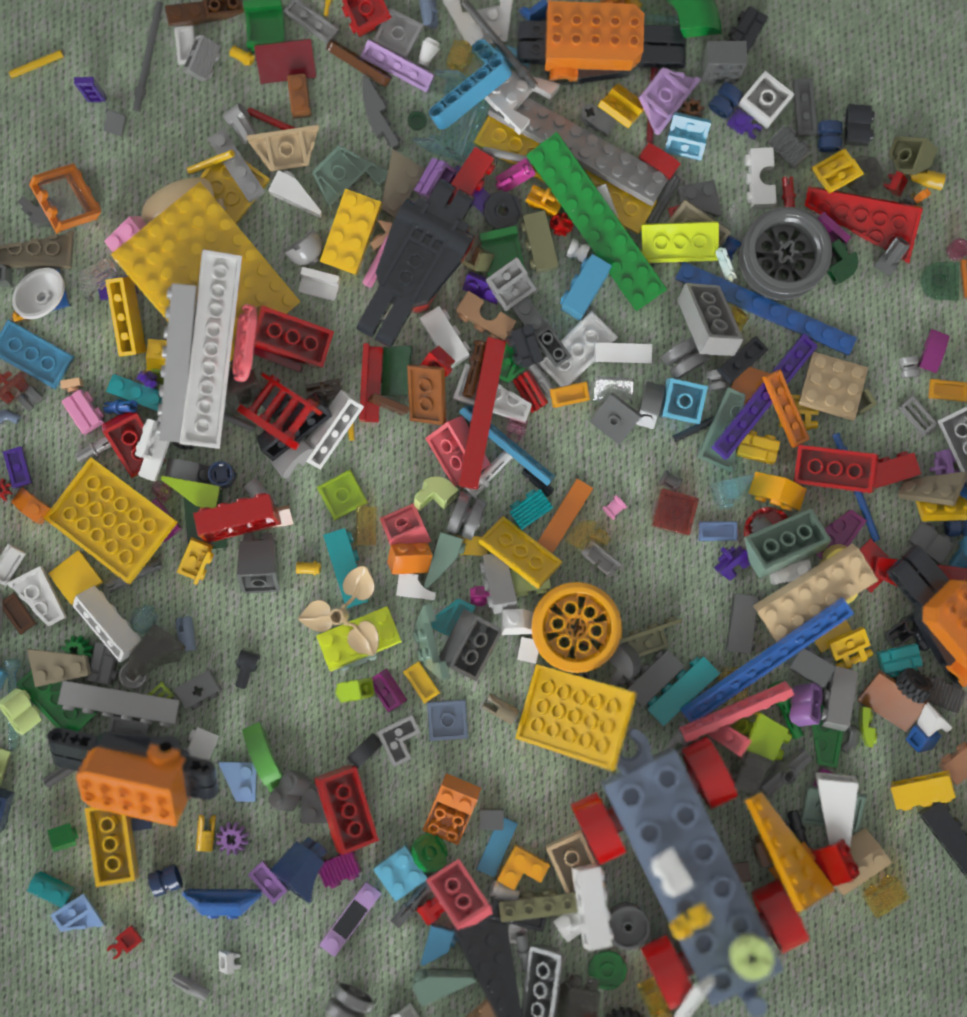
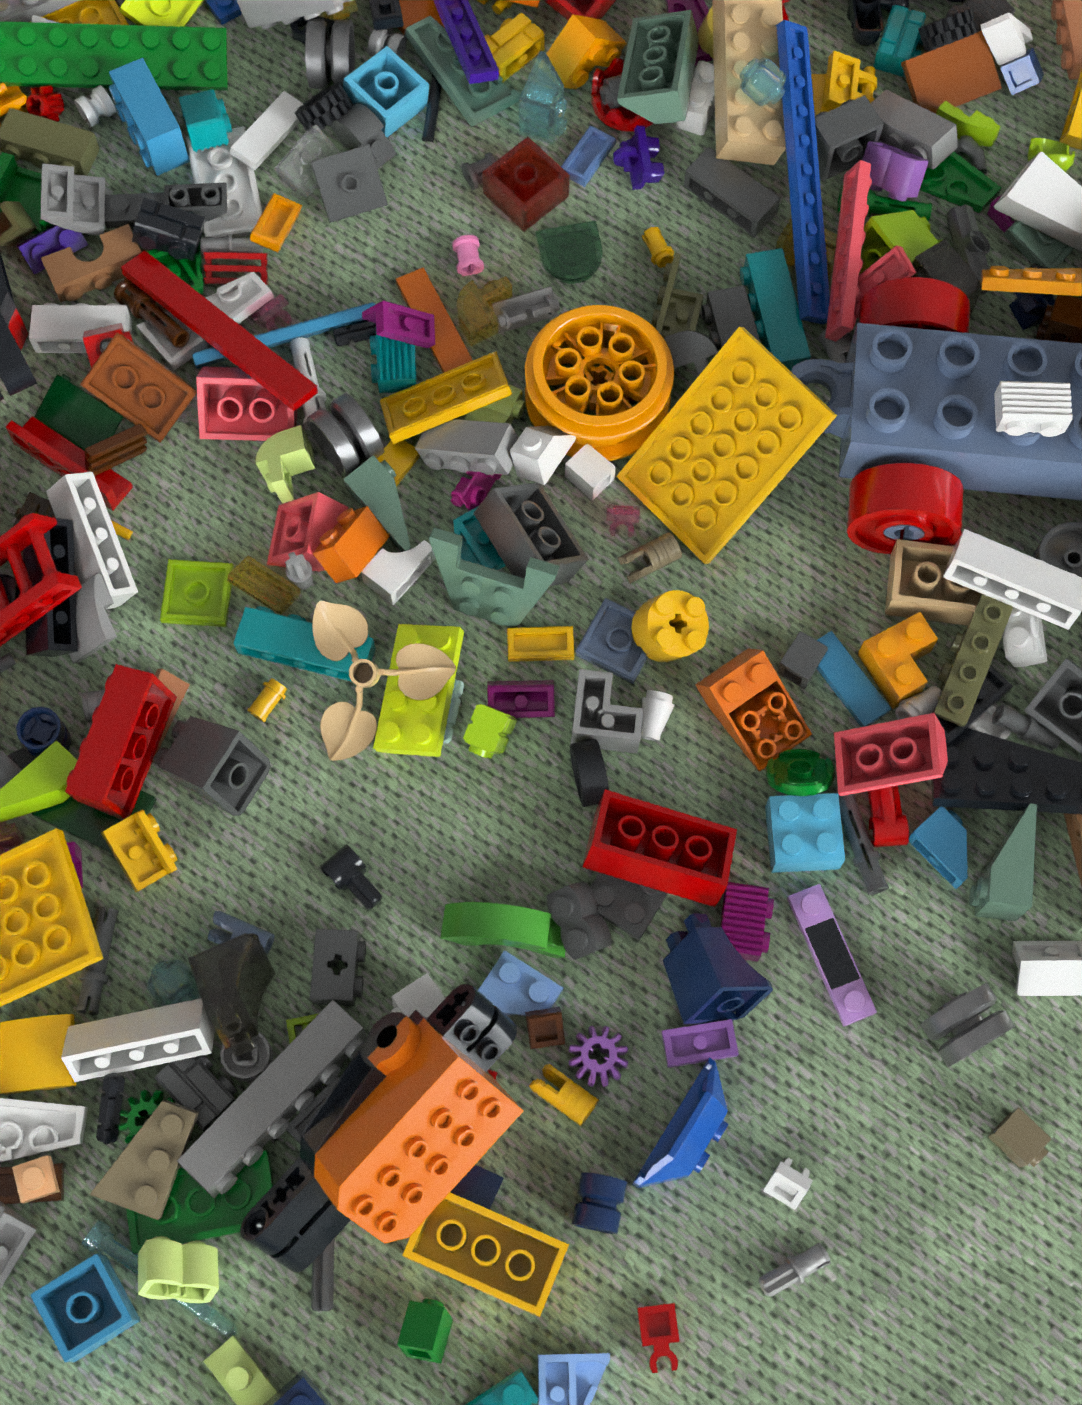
camera: 55 degrees left, 15 degrees down
(20, 618) = (35, 1179): none -> light nougat plate
(71, 630) = (110, 1107): none -> black axle
(231, 805) = (545, 1028): none -> reddish brown tile
(380, 541) = (299, 571): none -> light grey axle
(419, 762) = (656, 713): none -> white cone
(465, 744) = (670, 626): none -> yellow brick
(515, 681) = (622, 515): none -> clear pink tile
(545, 505) = (402, 323): none -> magenta panel
(603, 316) = (205, 120): none -> teal brick
(651, 375) = (324, 107): none -> black tyre
(653, 559) = (570, 251): none -> clear green tile
(684, 604) = (658, 247): none -> yellow pin
(800, 611) = (762, 81): none -> clear light blue head
(874, 783) = (1055, 150): none -> lime hair

